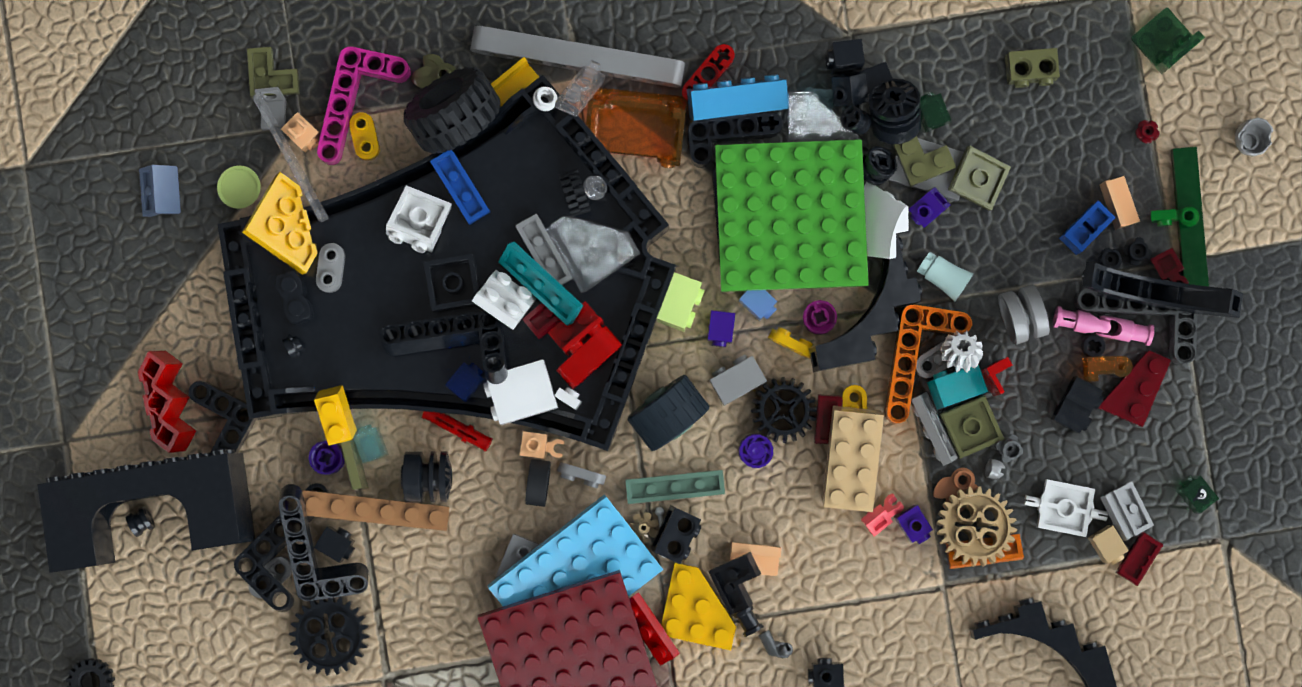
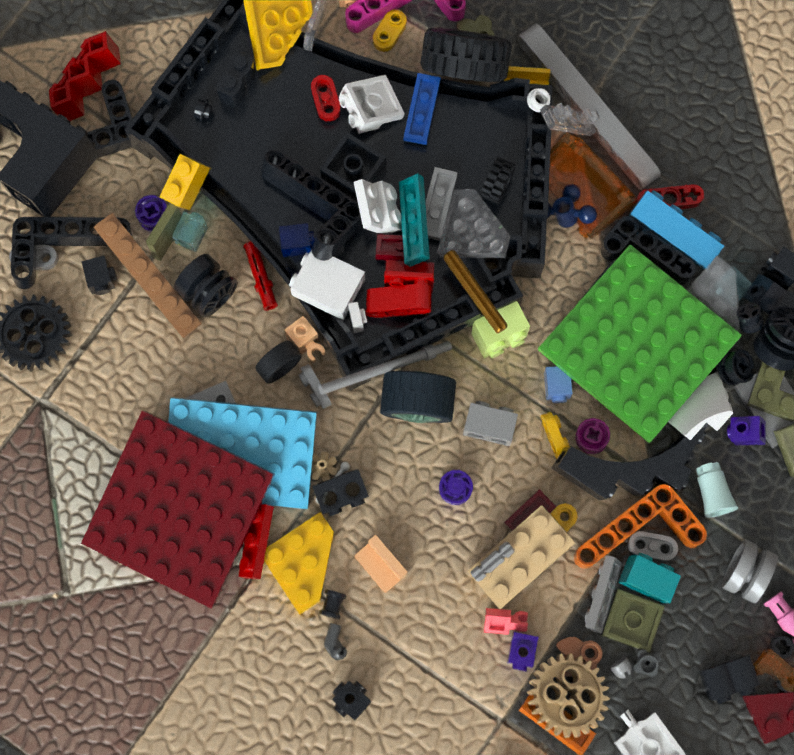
camera: 40 degrees right, 10 degrees down
(305, 553) = (64, 252): black beam -> none
(330, 267) = (282, 84): light grey plate -> none
(378, 247) = (325, 99): none -> red plate
(595, 187) = (516, 189): clear plate -> none
(631, 142) = (565, 210): none -> dark blue piece
(640, 298) = (475, 291): none -> pearl gold axle
(644, 374) = (426, 353): none -> light grey bar
(675, 487) = (373, 458): sand green plate -> none
(721, 328) = (513, 377): dark purple brick -> none
(730, 579) = (347, 561): black plate -> none
(797, 427) = (514, 477): black gear -> none
(837, 484) = (492, 561): none -> light grey axle
(961, 351) = (677, 553): white gear -> none
(990, 378) = (685, 591): red panel -> none

